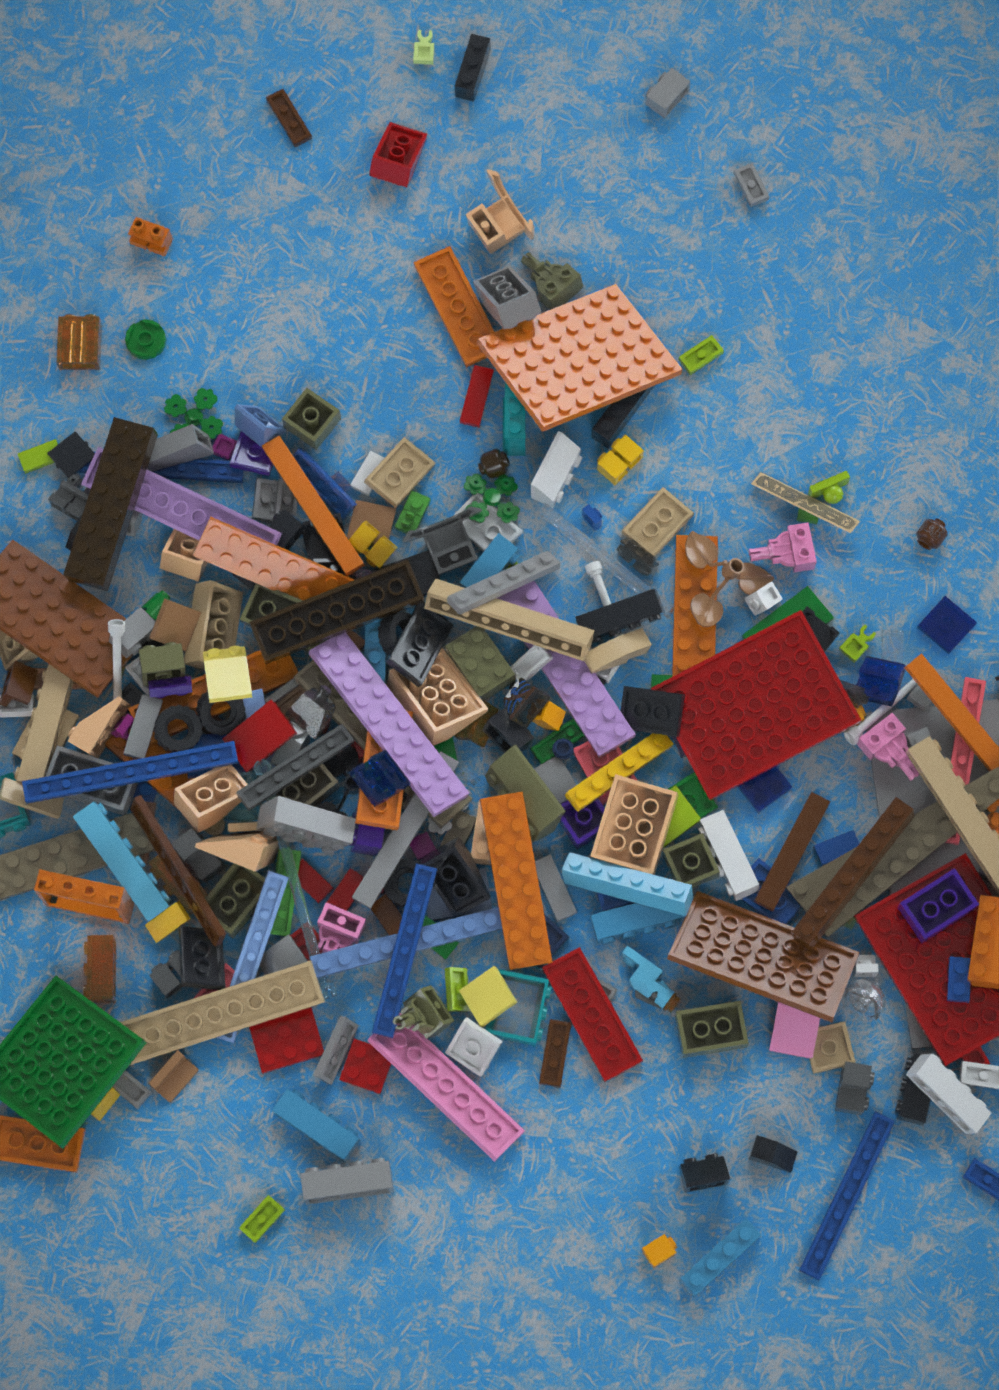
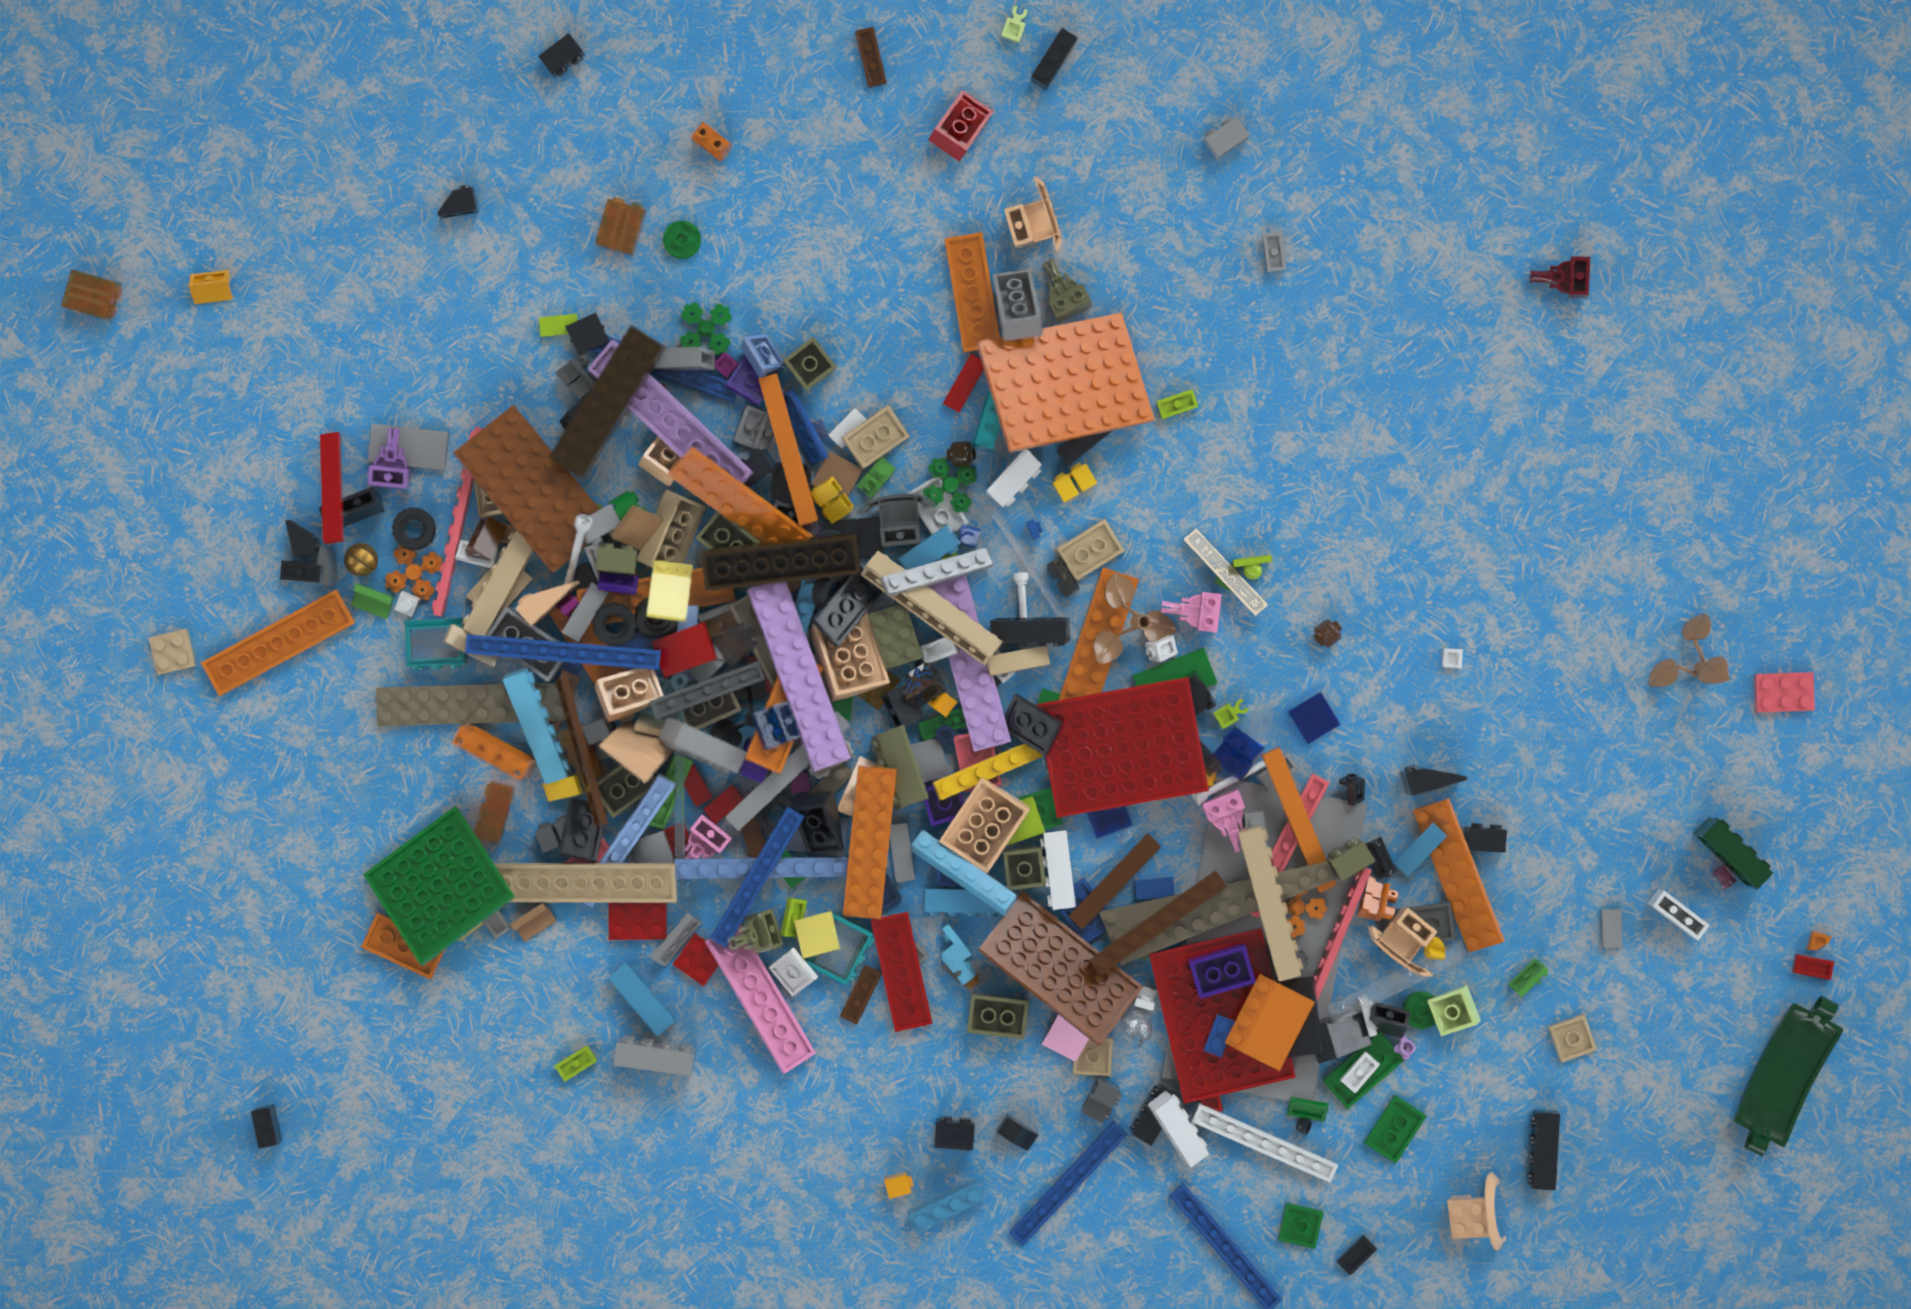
camera: 15 degrees right, 15 degrees up
(526, 542) = (968, 535): none -> blue plate

